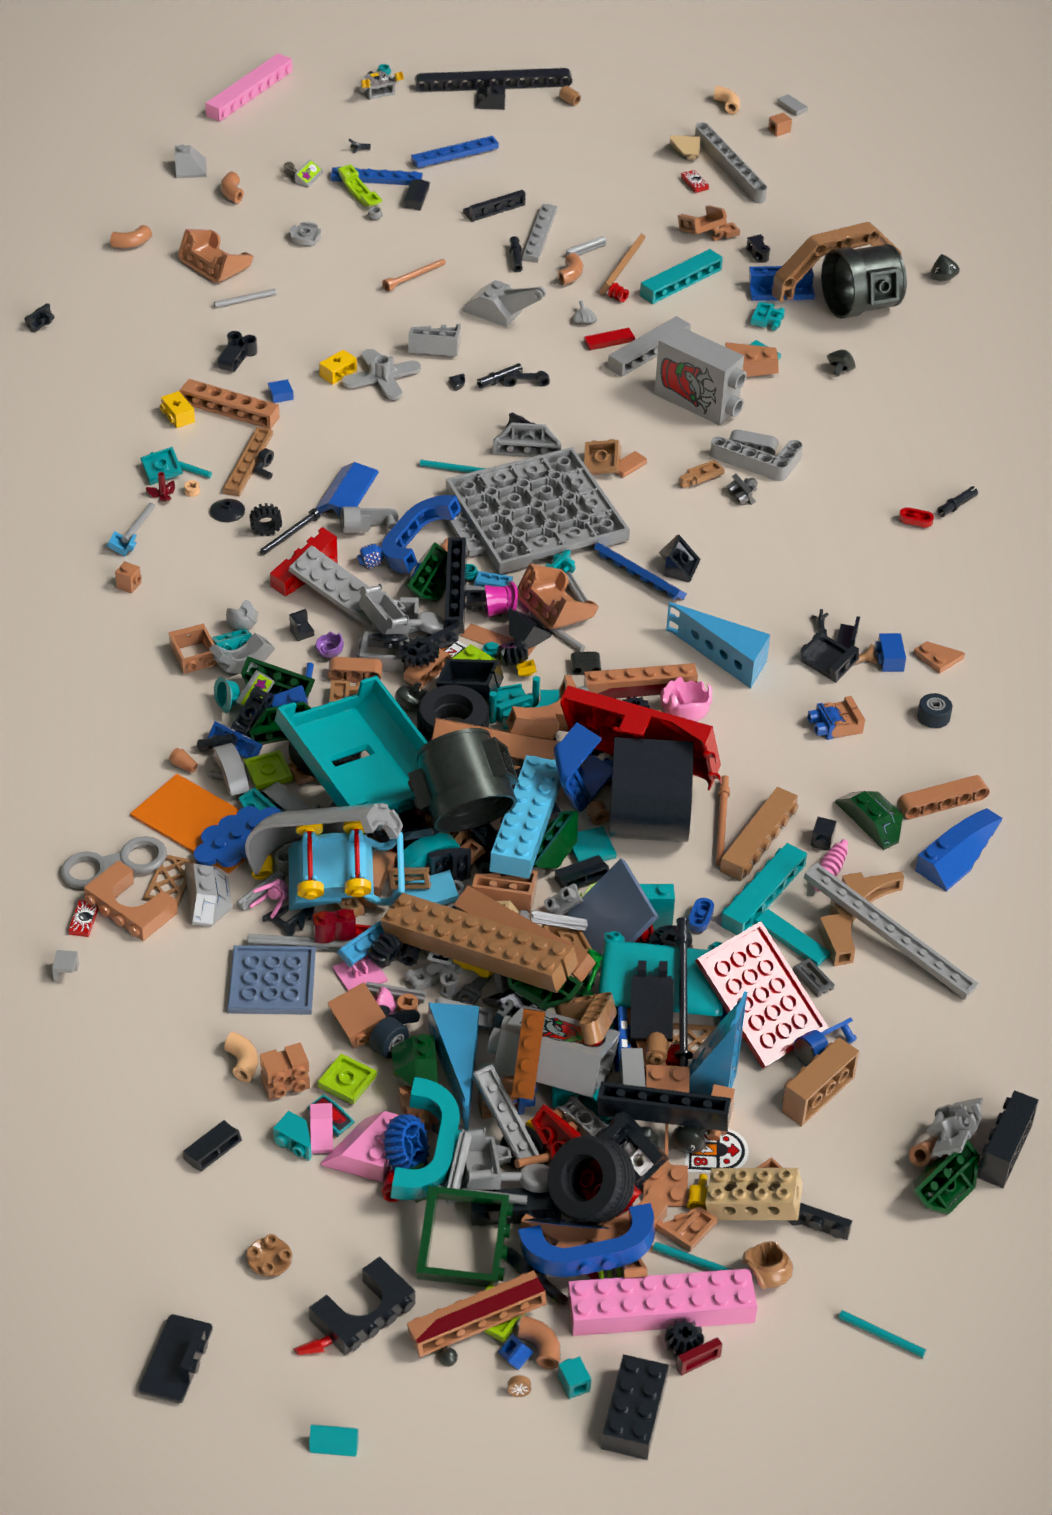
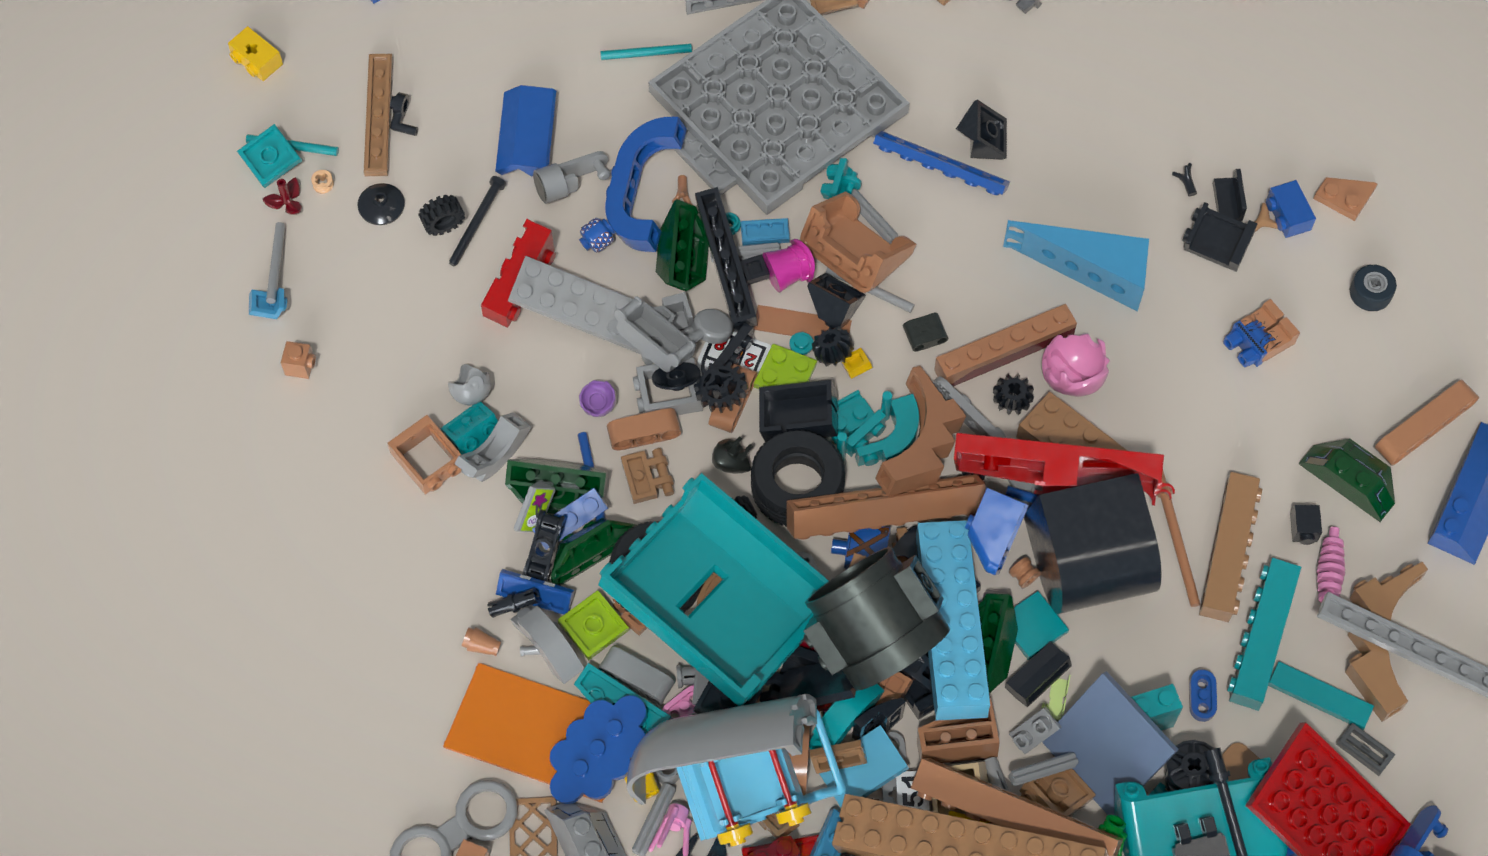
camera: 15 degrees left, 20 degrees up
(226, 693) = (497, 520): teal piece -> none
(230, 404) = (310, 30): nougat brick -> none
(299, 625) = (548, 376): black panel -> none

